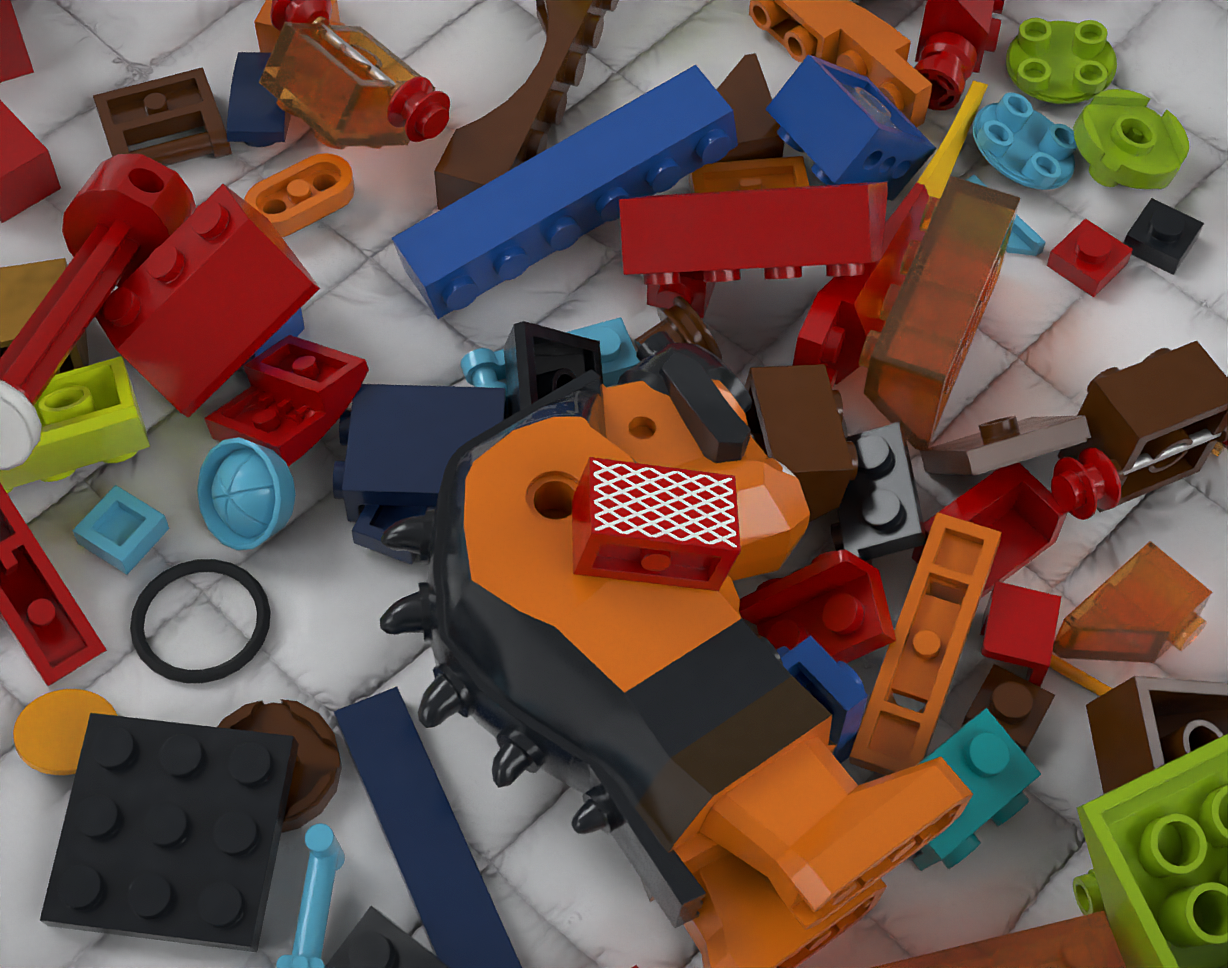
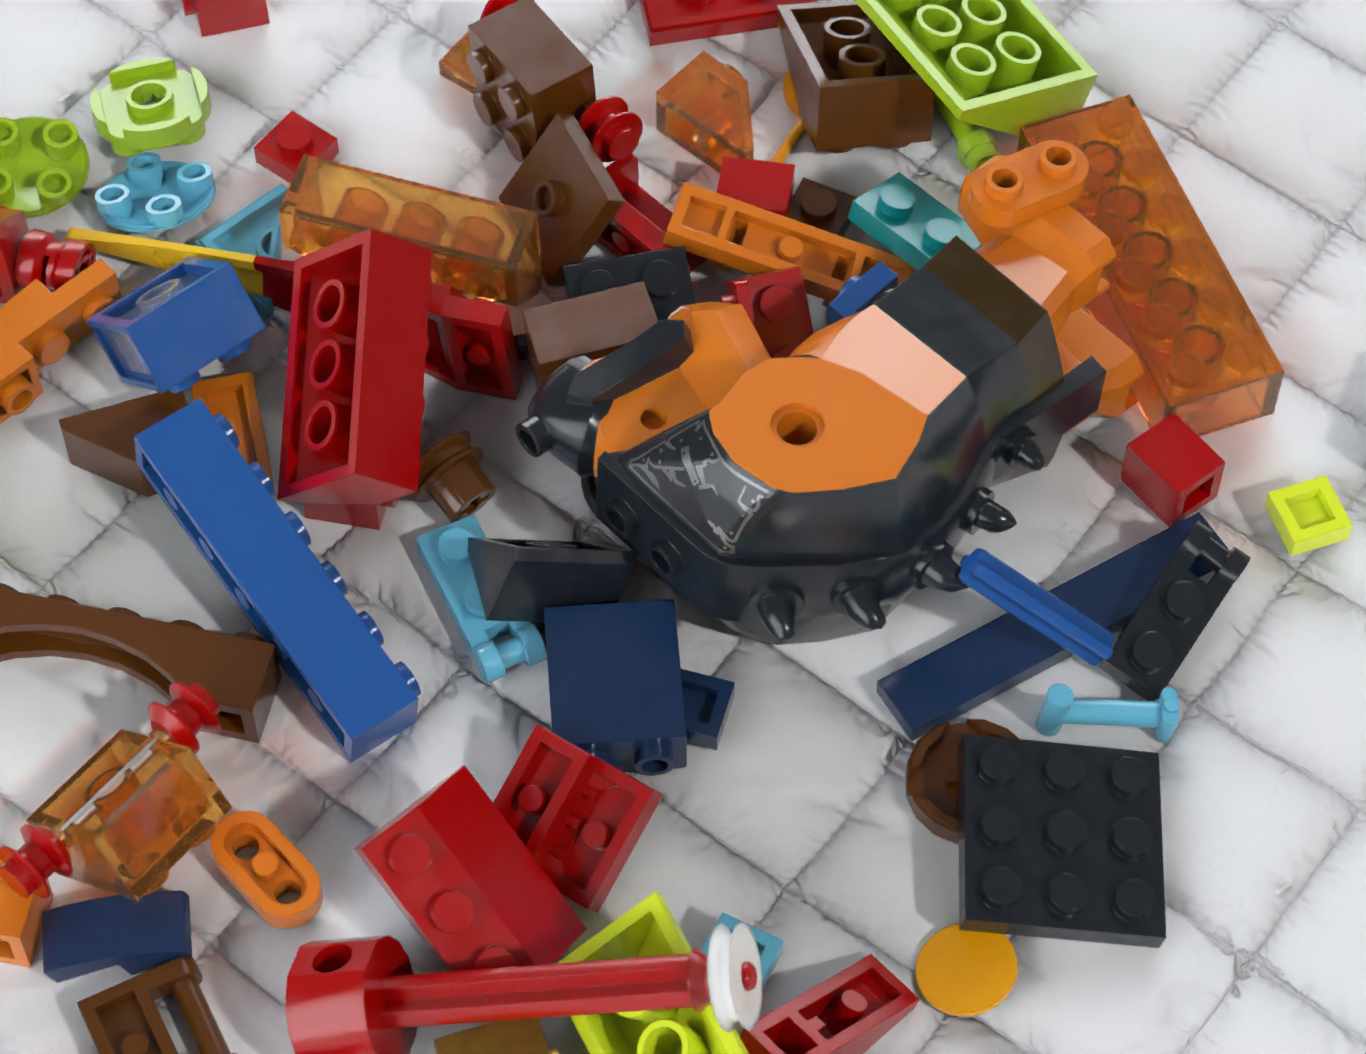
camera: 95 degrees left, 0 degrees up
(213, 673) = (814, 934): black tyre -> none
(244, 493) = (693, 834): medium azure hat -> none
(408, 809) = (1036, 607): none -> blue axle
(655, 524) = (829, 336): red panel -> none
(903, 801) = (1037, 180): none -> orange plate
(1163, 236) = (264, 91): black plate -> none

